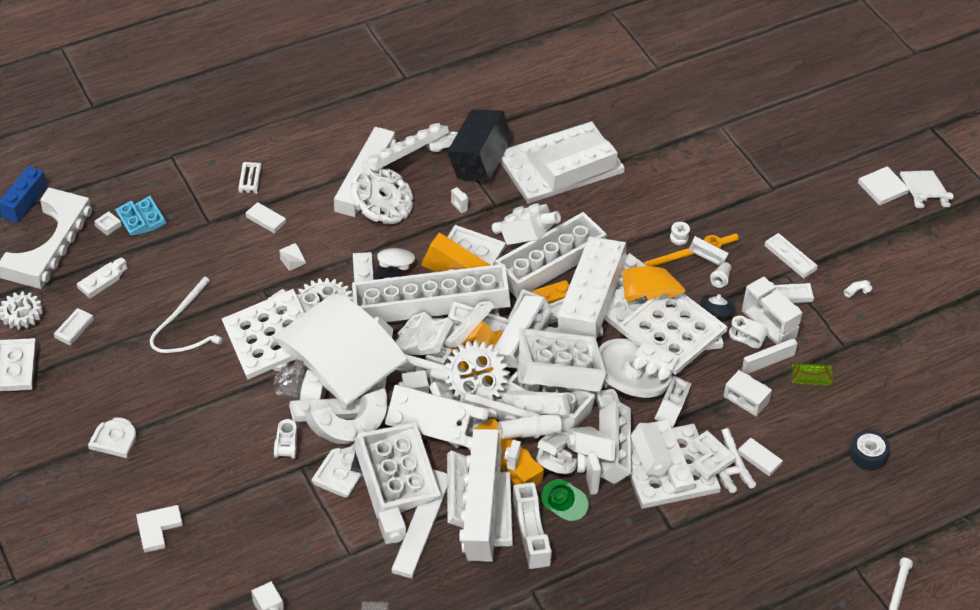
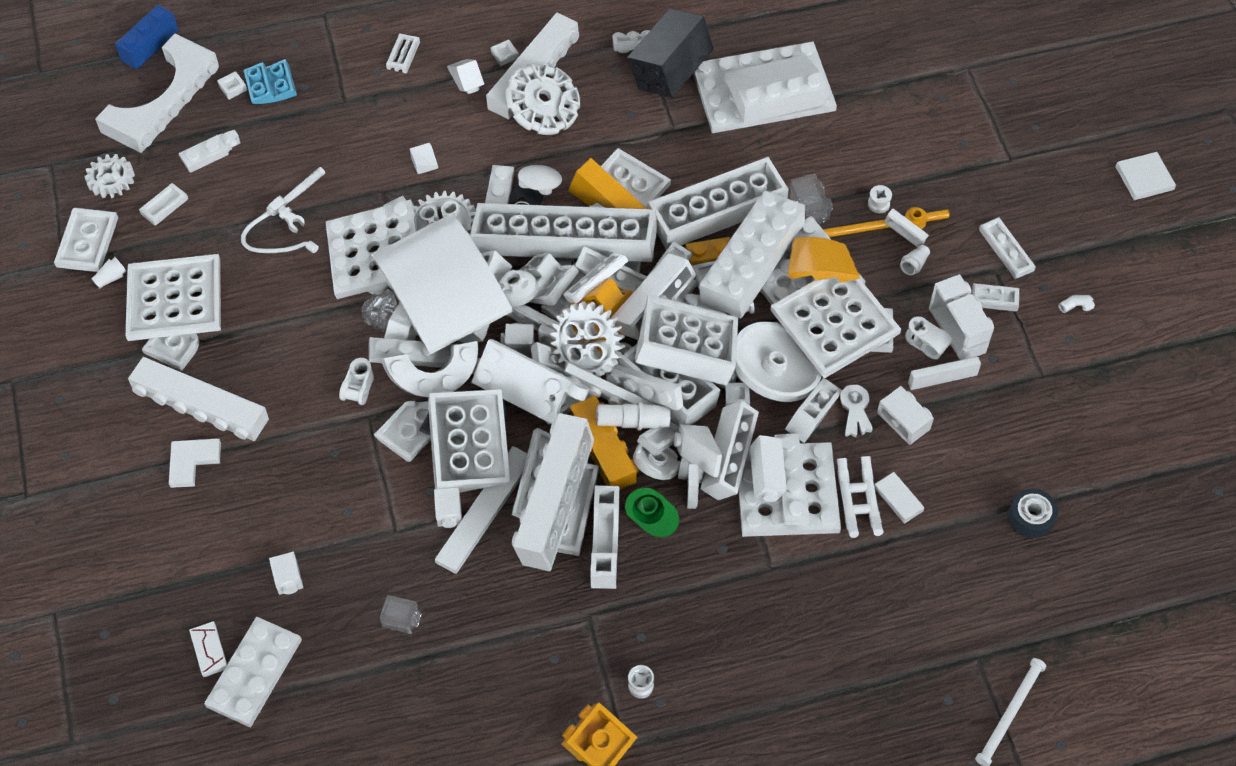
camera: 15 degrees right, 10 degrees up
(42, 387) = (109, 272): none -> white cone
(97, 407) = (184, 323): none -> white piece
(150, 476) = (198, 399): none -> white brick
(178, 312) = (278, 206): none -> white piece
(265, 217) = (407, 105): white tile -> none
(310, 186) = (466, 75): none -> white slope
(337, 165) = (504, 52): none -> white tile
(405, 147) = (581, 44): white plate -> none
(410, 344) = (521, 291): none -> white piece
(459, 200) = (632, 117): white plate -> none
(512, 454) = (603, 448): white plate -> none
(526, 223) = (697, 161): white brick -> none
(623, 232) = (811, 193): none -> clear brick
(655, 359) = (803, 357): white plate -> none
(704, 389) = (855, 399): none -> white piece
(715, 456) = (843, 488): white plate -> none
(717, 305) = (898, 298): black wheel -> none
(812, 374) = (990, 403): clear neon green tile -> none
(925, 185) = (1197, 183): white flag -> none

